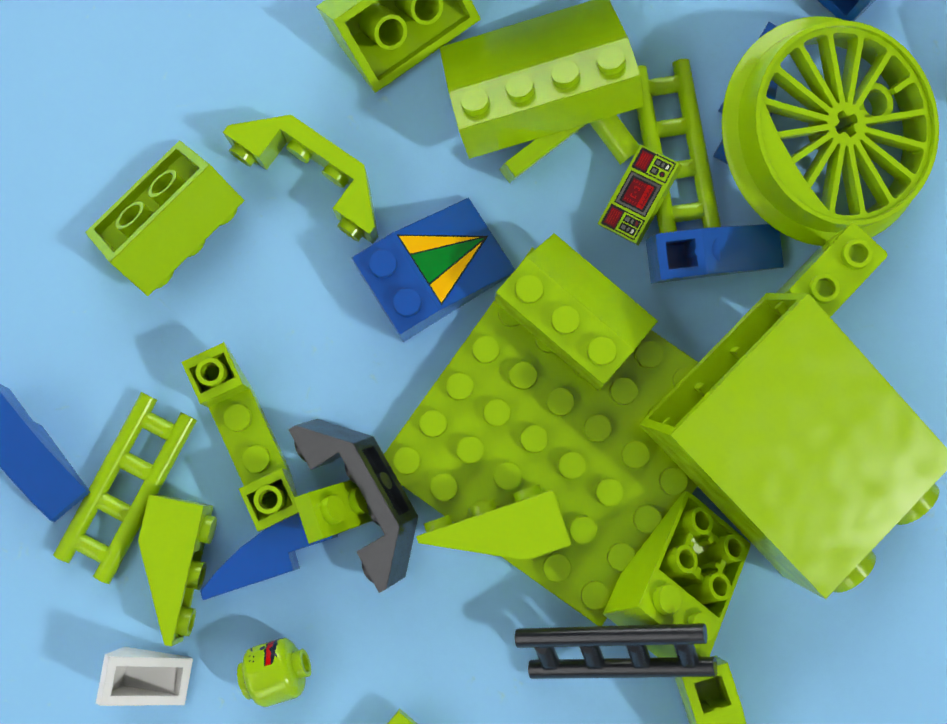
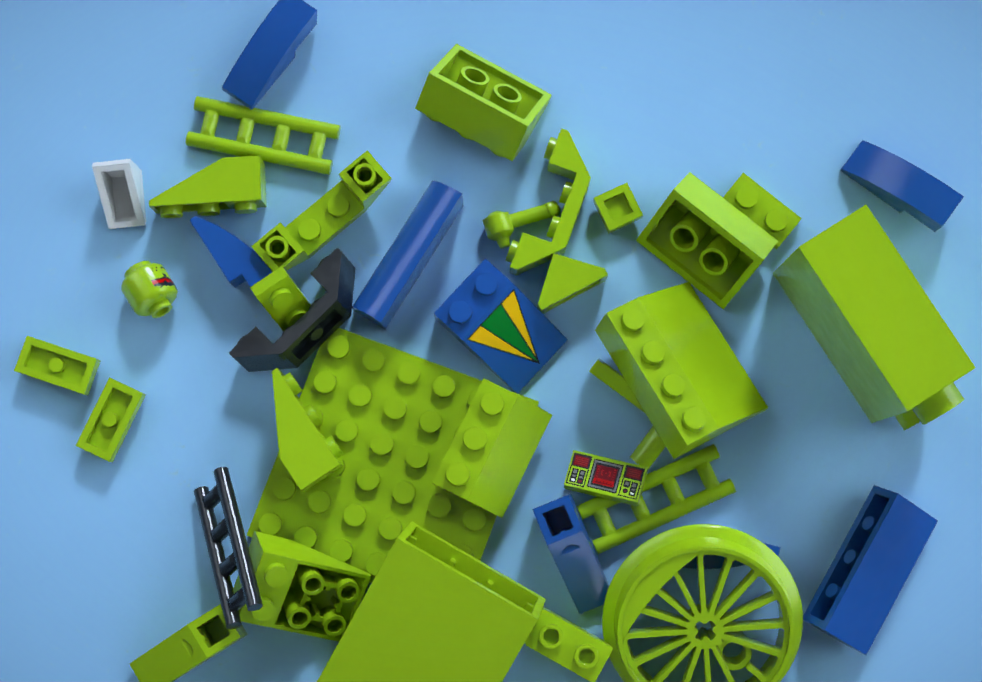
camera: 80 degrees right, 0 degrees up
(315, 235) = (501, 224): none -> lime piece
(318, 348) = (409, 254): none -> blue brick
(333, 99) = (617, 207): none -> lime plate
(399, 177) = (568, 279): none -> lime slope

